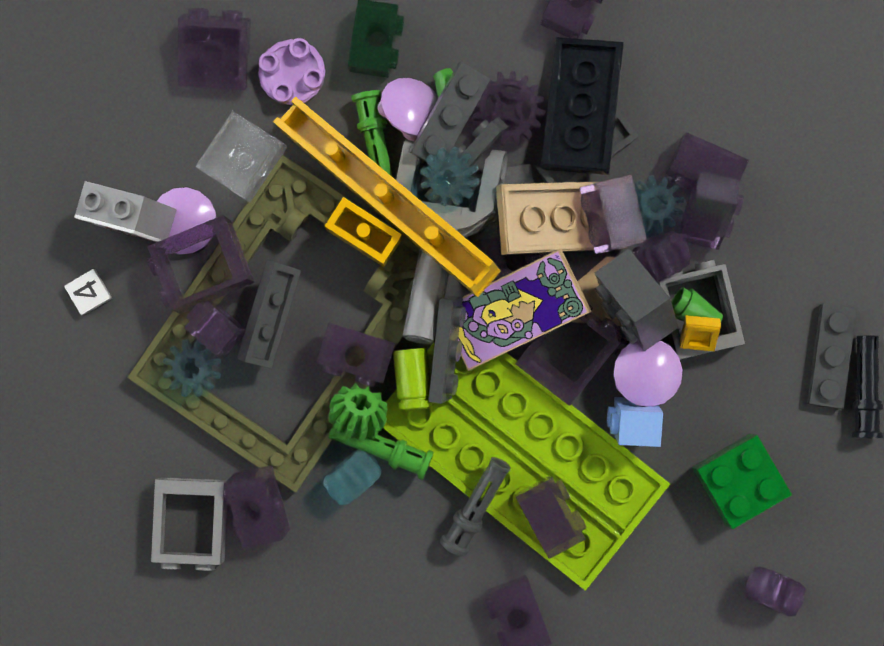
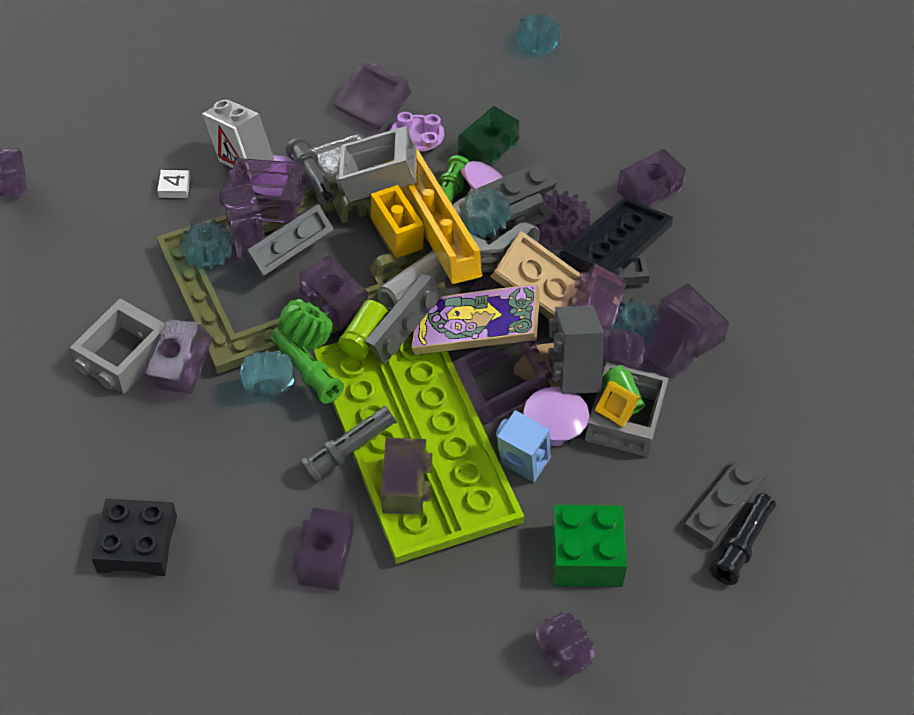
camera: 25 degrees right, 35 degrees down
(212, 194) = (300, 151): none -> dark grey pin
(331, 161) = (373, 150): none -> light grey window

